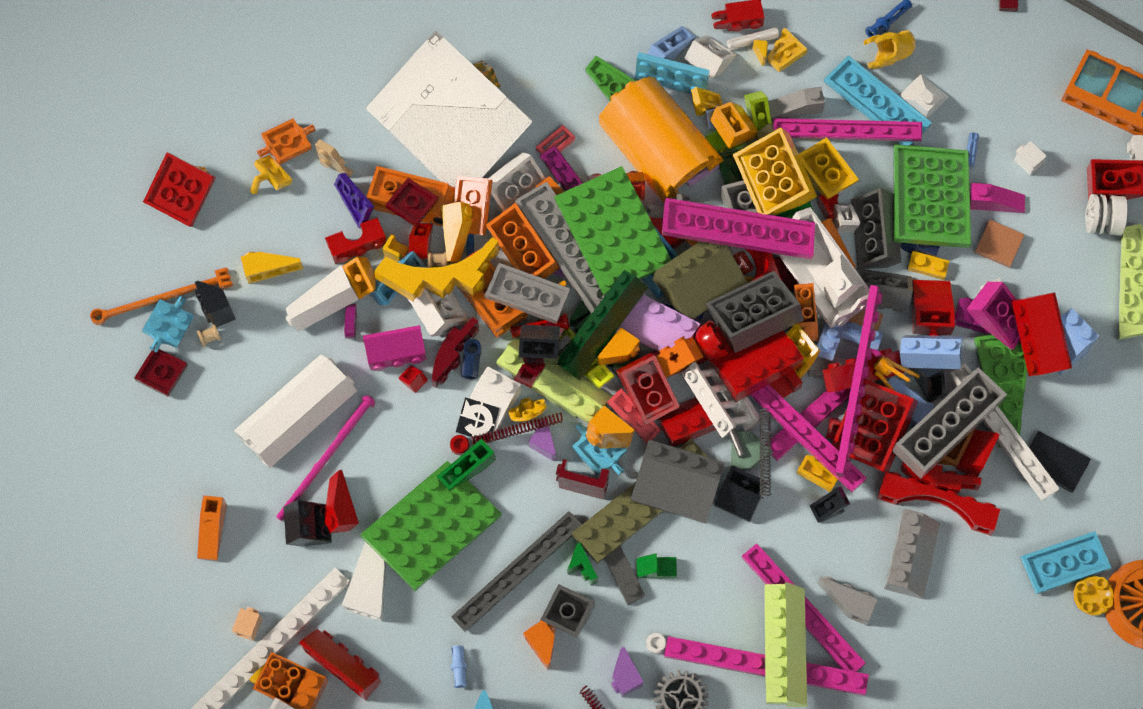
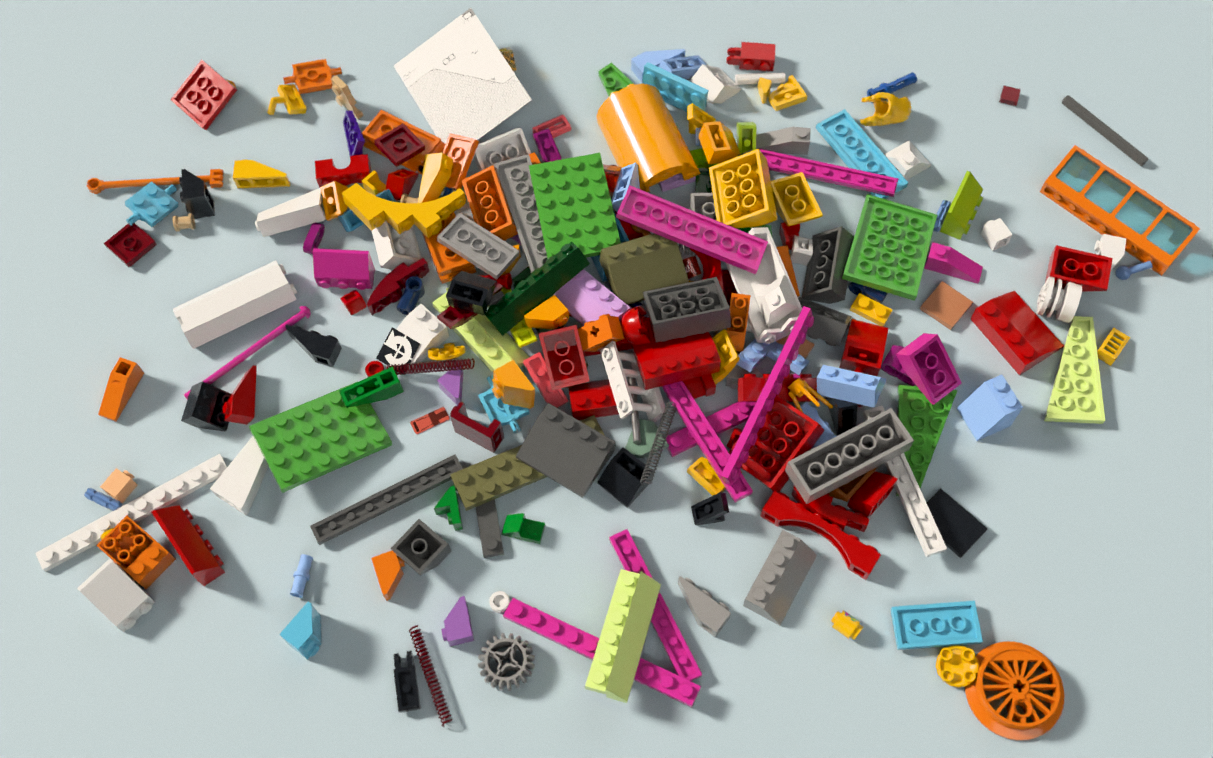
camera: 15 degrees right, 5 degrees down
(234, 642) = (102, 499): none -> medium blue axle
(394, 434) = (319, 347): none -> black slope
(530, 482) = (429, 420): none -> clear red sticker
(629, 49) = (654, 58): none -> light blue slope
(656, 194) = (628, 176): none -> light blue slope
(985, 583) = (846, 624): none -> yellow brick
(991, 137) = (963, 207): none -> lime slope
(1042, 334) = (965, 394): red slope -> none
(1072, 255) = (1015, 331): none -> red slope

